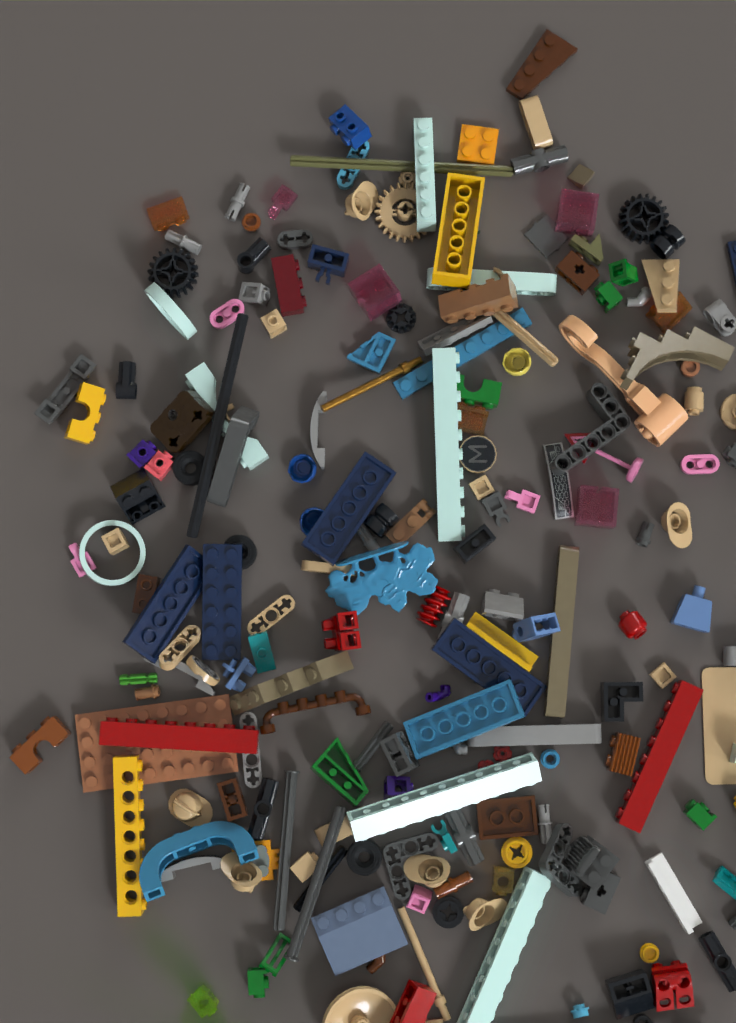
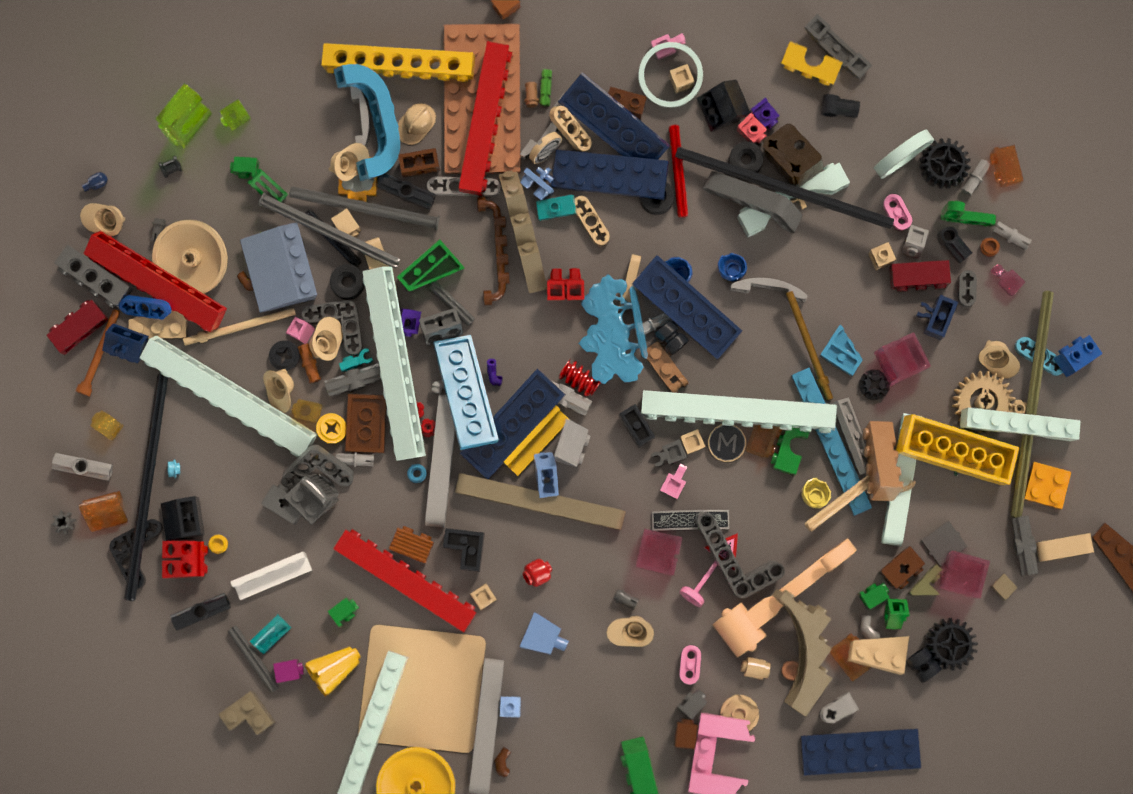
camera: 100 degrees right, 0 degrees up
(209, 534) = (678, 172): none -> red axle
(222, 250) = (955, 212): none -> green beam

